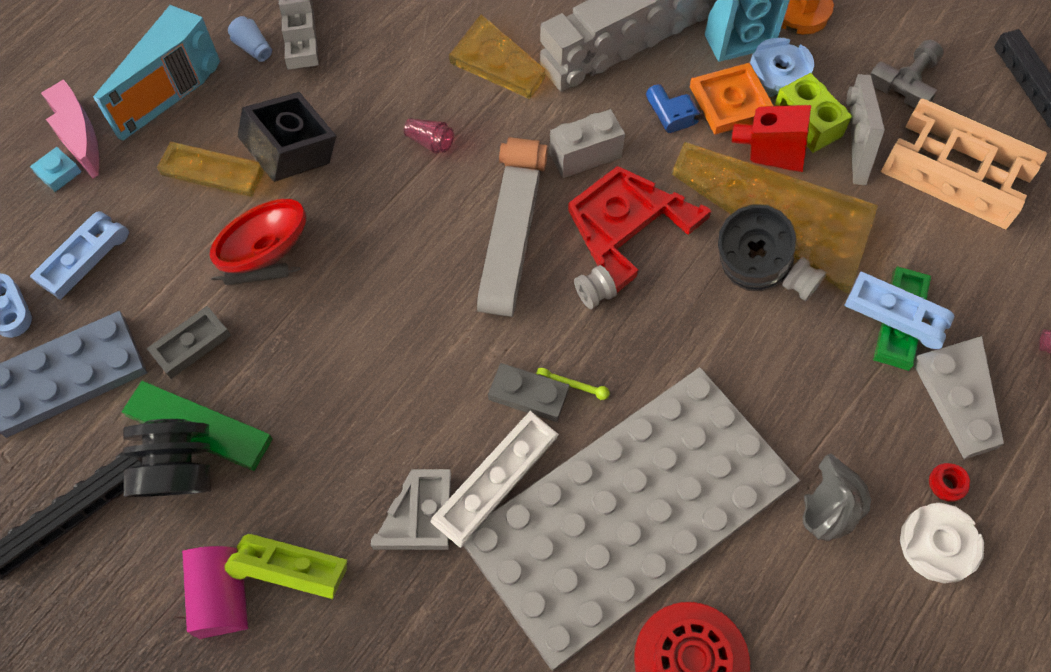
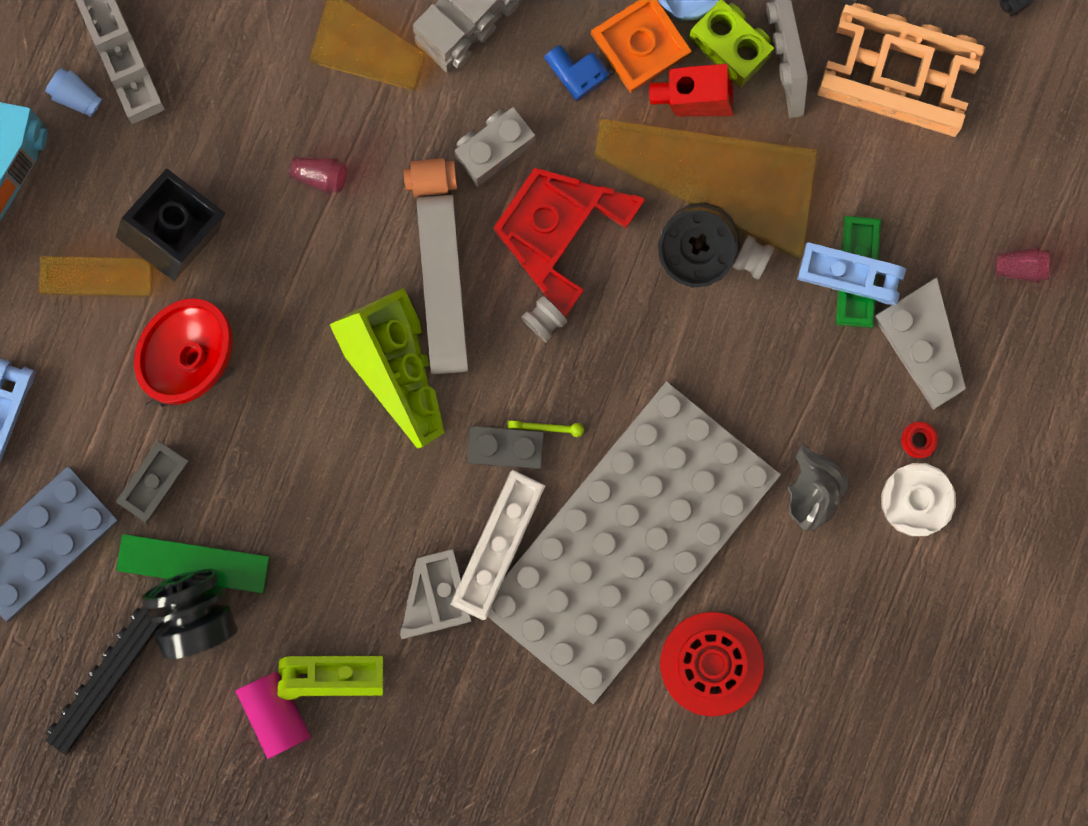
camera: 20 degrees left, 20 degrees up
(441, 279) = (387, 355): none -> lime wedge

